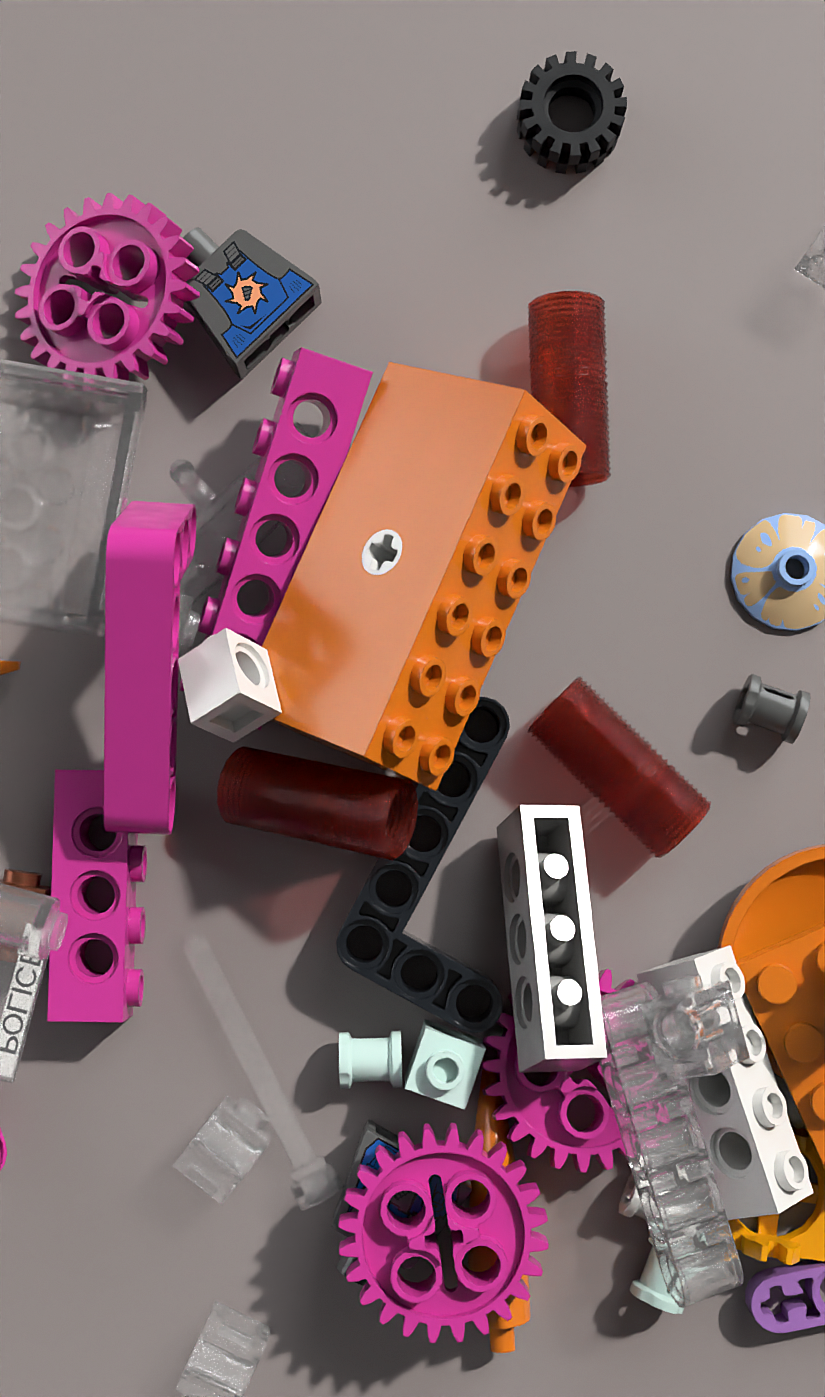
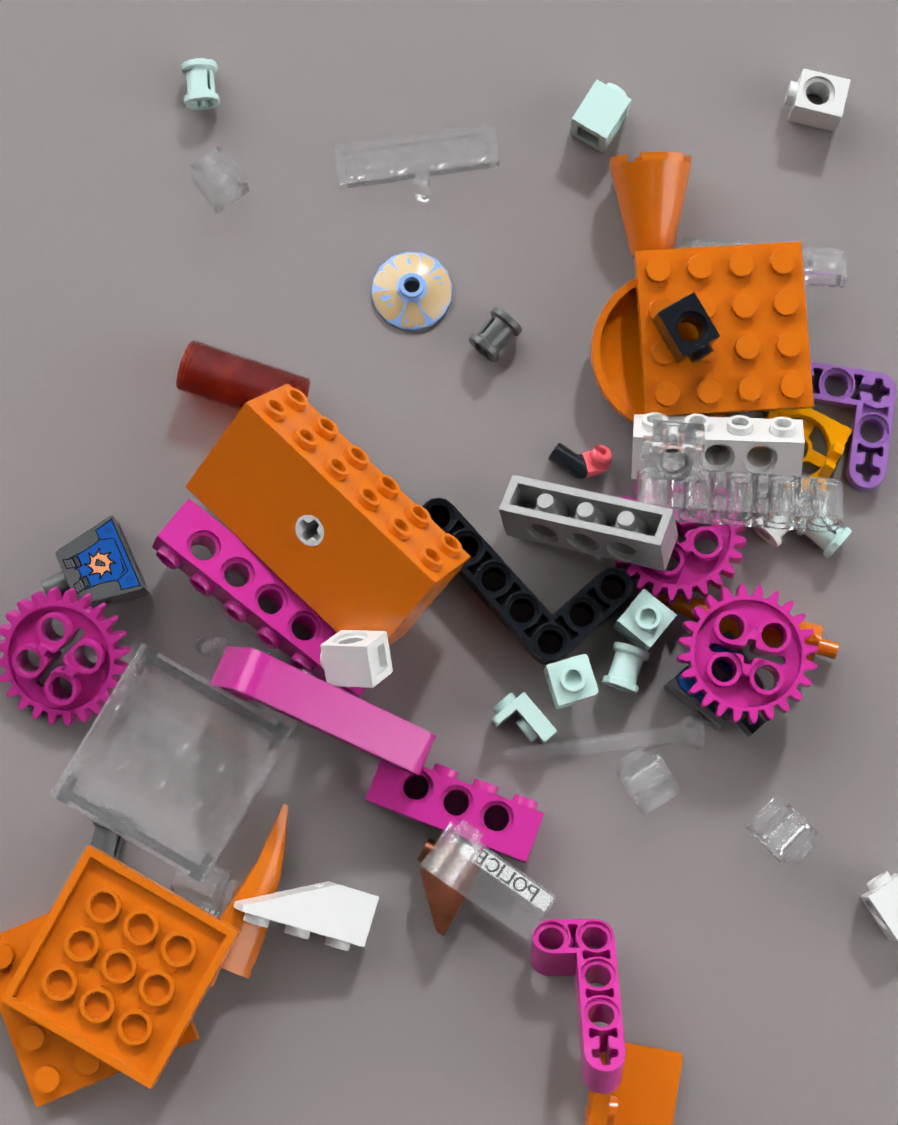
camera: 65 degrees left, 5 degrees down
(250, 956) = (531, 721): none -> light aqua bracket
(308, 798) = (442, 646): clear red piece -> none
(320, 993) = (570, 680): none -> light aqua bracket
(575, 80) = (51, 293): black tyre -> none
(605, 758) = (495, 445): clear red piece -> none
(635, 898) = (584, 464): none -> arm

